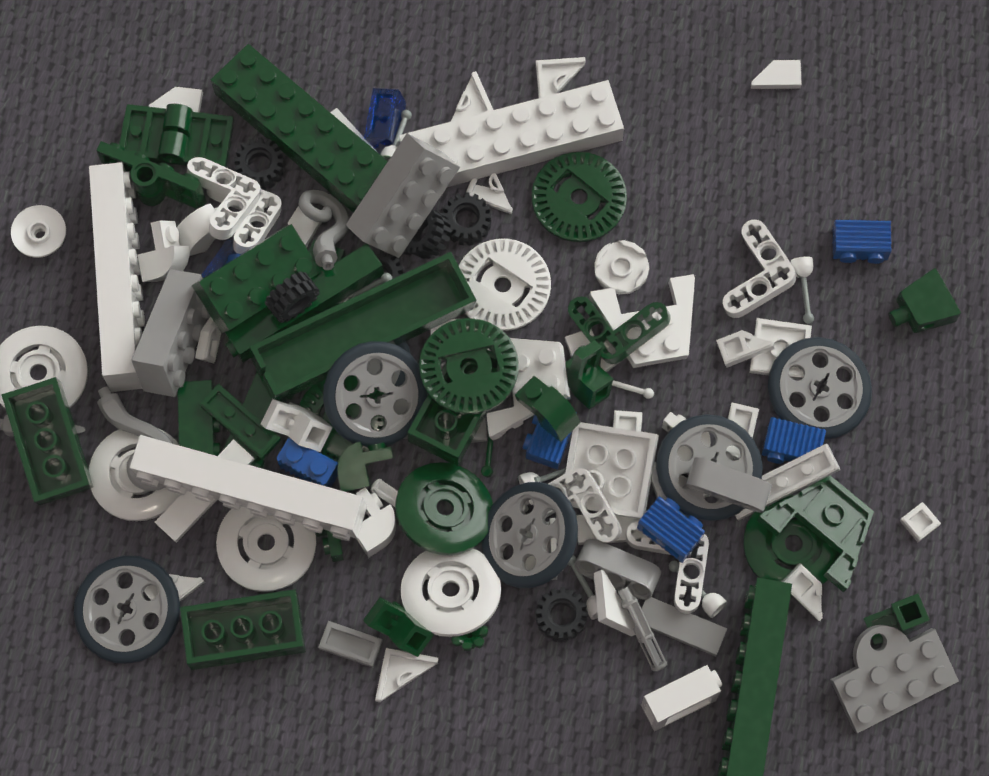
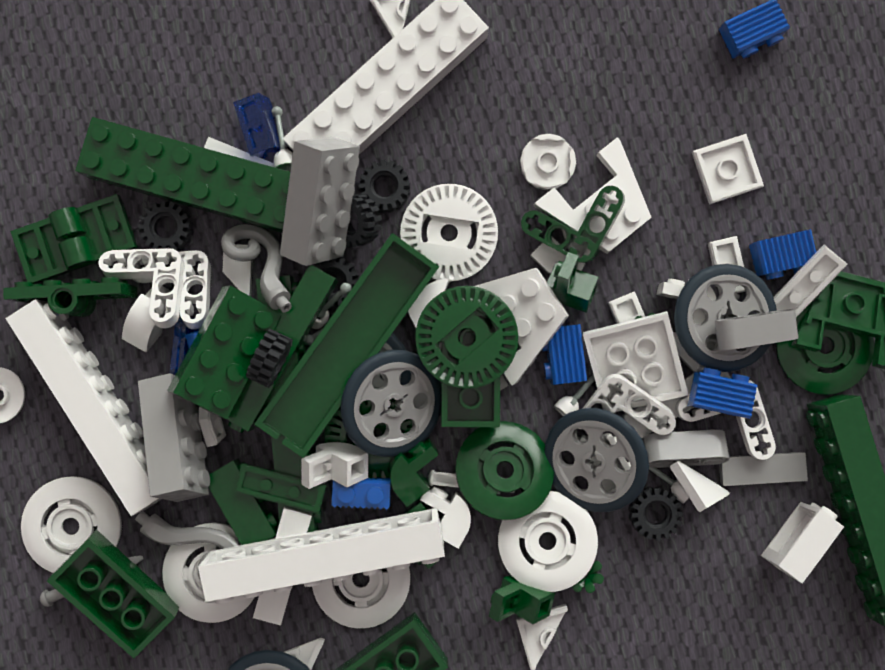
camera: 30 degrees left, 15 degrees up
(167, 253) = (128, 362): white brick -> none
(180, 95) = (58, 198): white tile -> none
(350, 644) = (481, 631): light grey tile -> none
(473, 100) = (332, 69): white tile -> none
(486, 470) = (522, 412): dark green hinge -> none
(493, 196) = (394, 151): white tile -> none
(550, 407) = (556, 338): dark green brick -> none
(594, 177) = (476, 87): dark green piece -> none
(642, 629) = (734, 492): light grey piece -> none
(647, 393) = (629, 270): white hinge -> none
(711, 603) = (782, 435): white hinge -> none
(741, 347) = (694, 185): white tile -> none
(770, 267) = (684, 97): white beam -> none
(803, 268) = (712, 84): hinge -> none
(806, 590) = (857, 382): white tile -> none
(837, 356) = (813, 173): light grey wedge -> none
(925, 304) = (839, 62): dark green torso -> none

